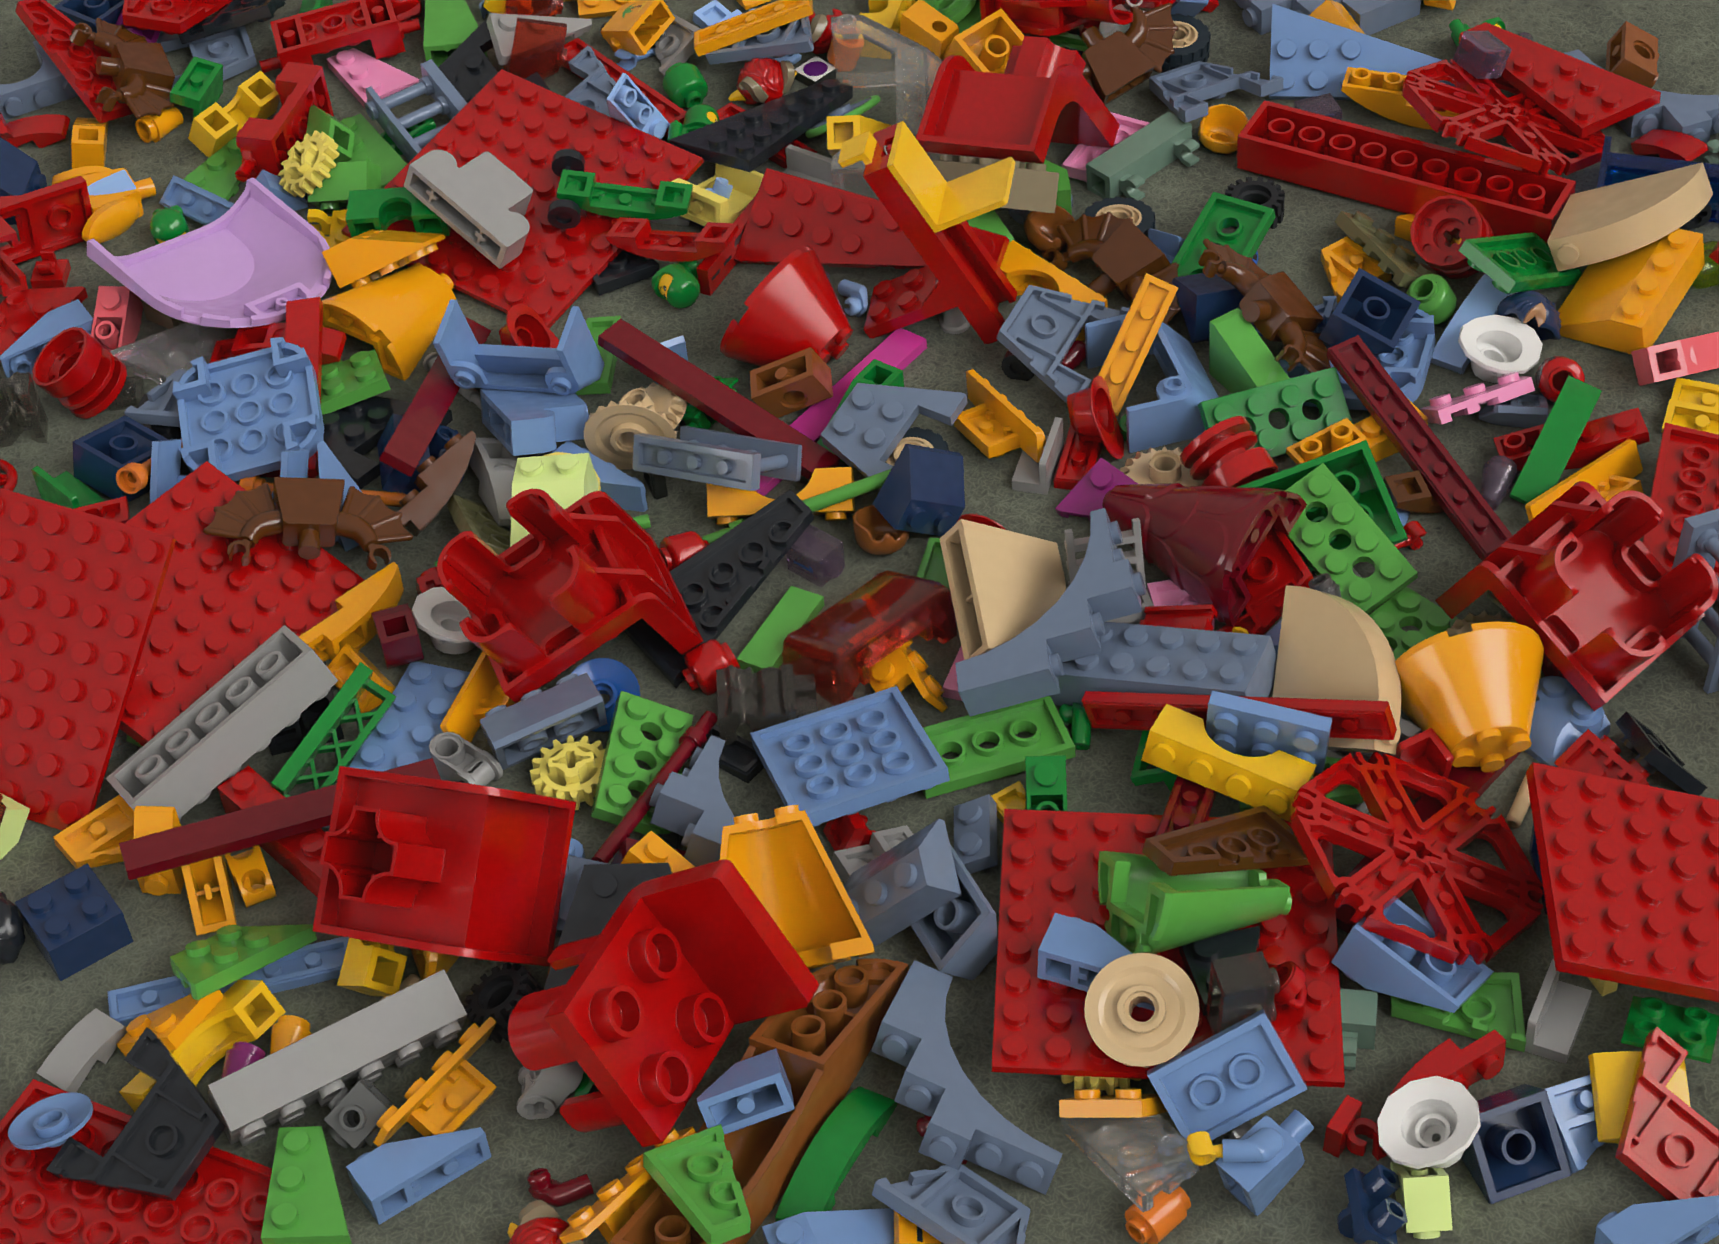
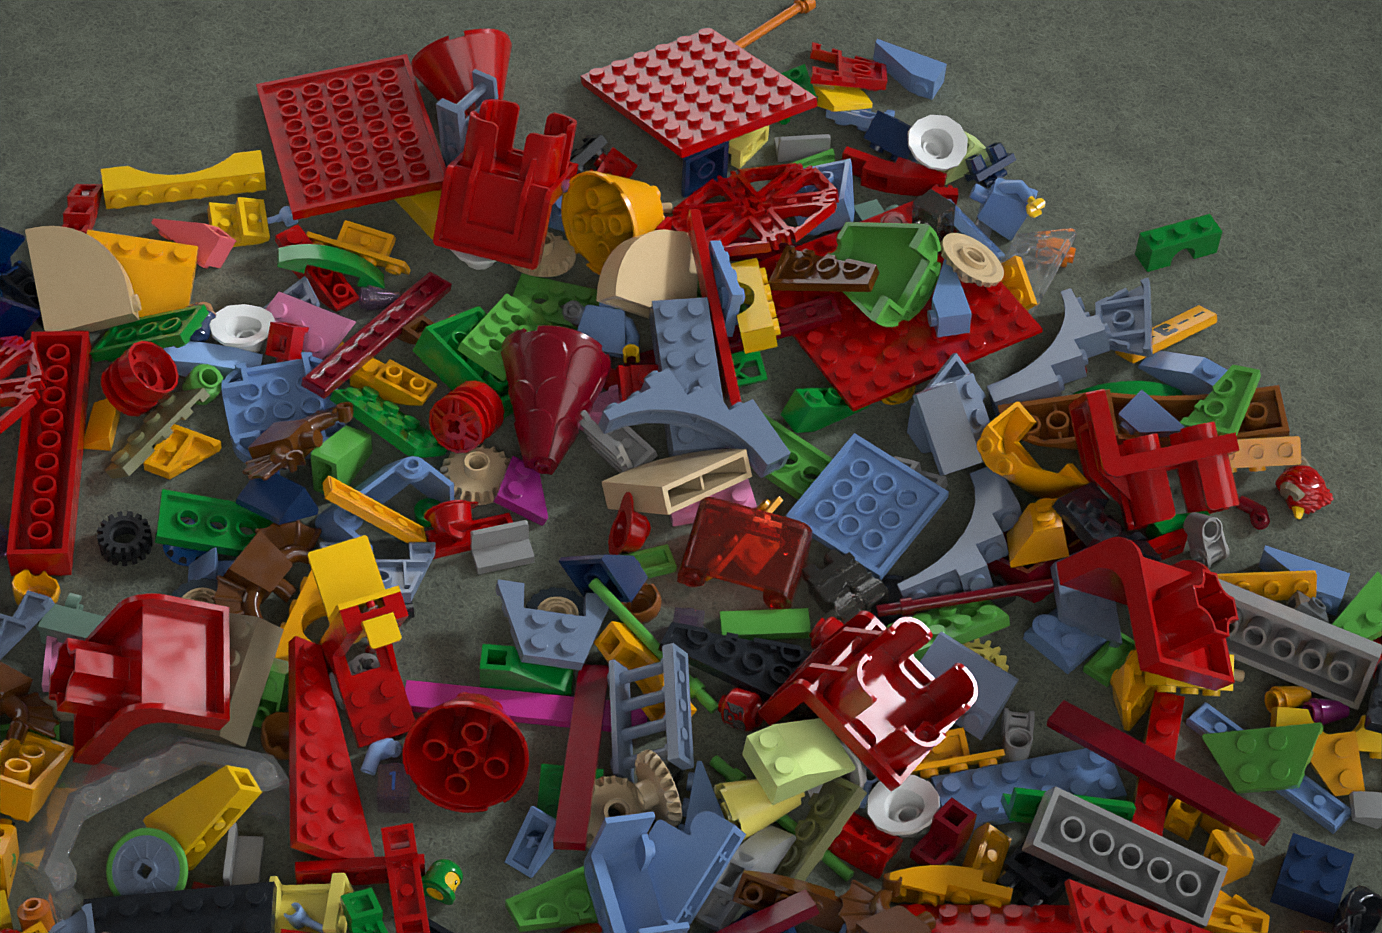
camera: 130 degrees left, 5 degrees up
(791, 383) = (532, 717): dark orange brick -> none
(976, 833) = (874, 430): sand blue plate -> none
(995, 423) = (478, 592): light orange bracket -> none
(1010, 798) = (824, 436): yellow tile -> none
(1371, 311) = (260, 397): dark blue slope -> none
(1454, 370) = (285, 341): none -> red brick
(1553, 374) = (255, 290): red head -> none

